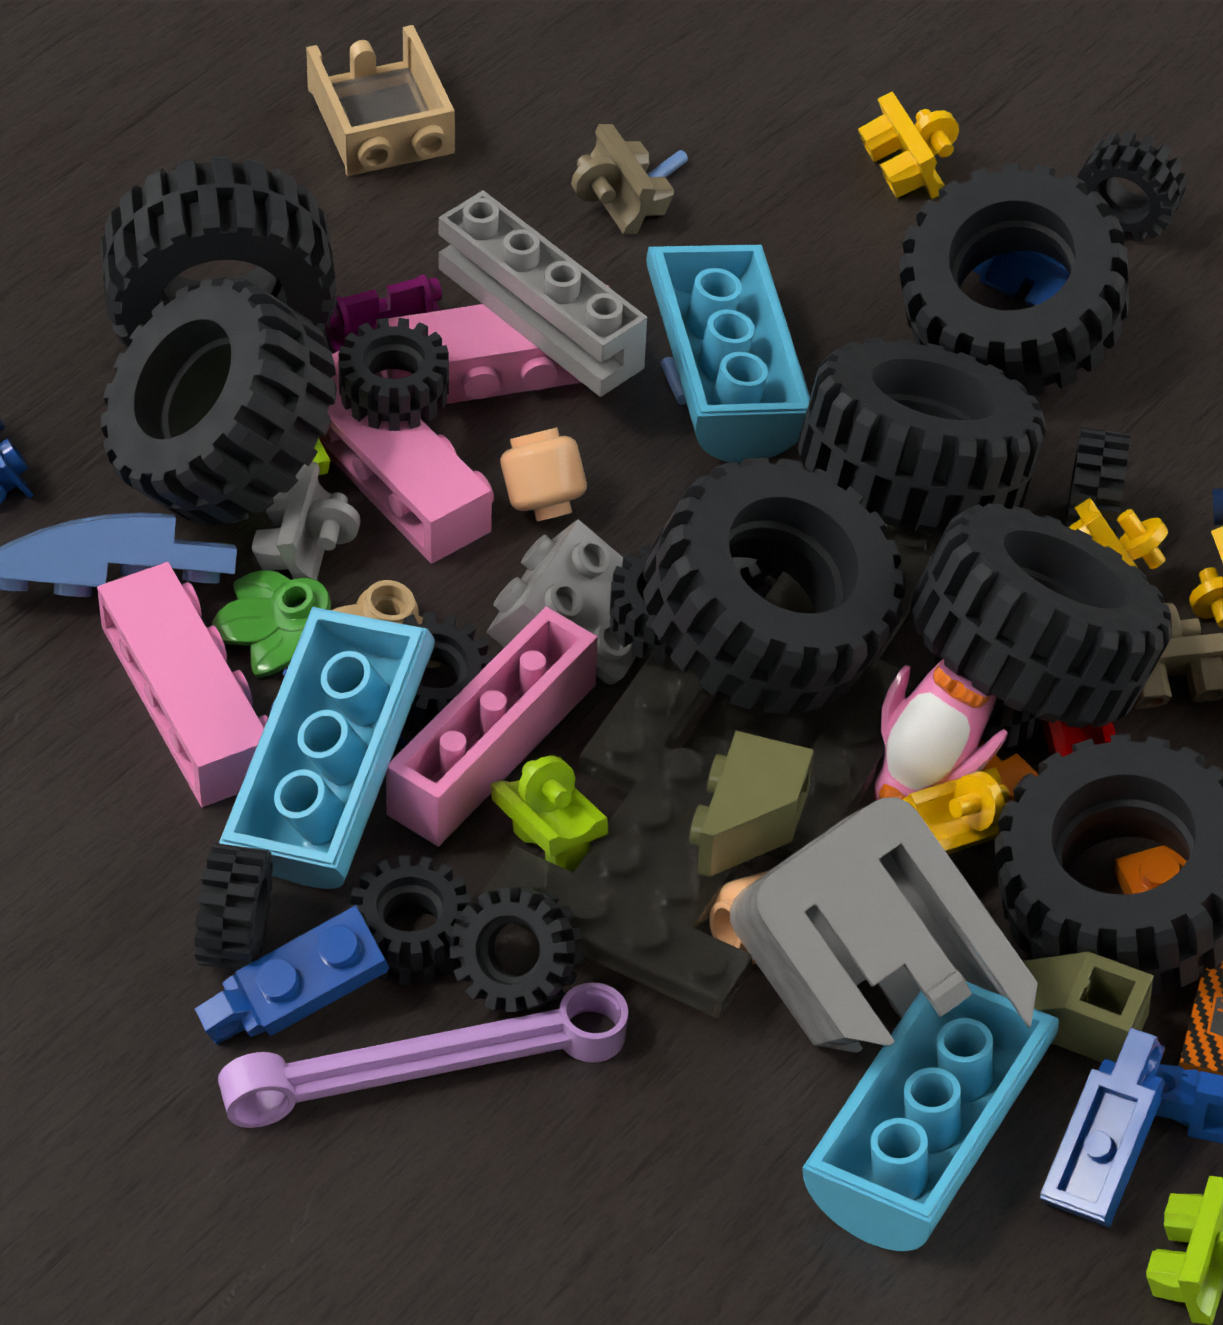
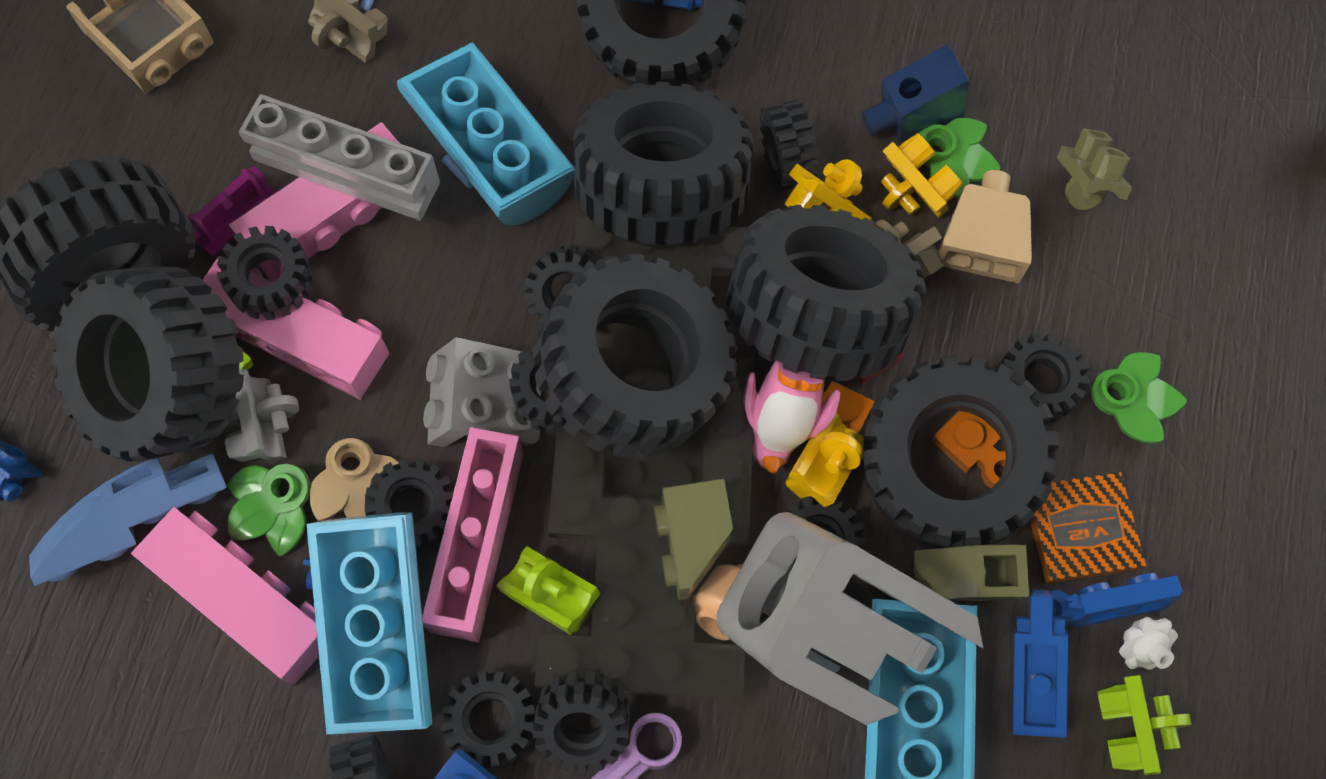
camera: 25 degrees left, 20 degrees up
(543, 473) = (408, 299): light nougat head -> none

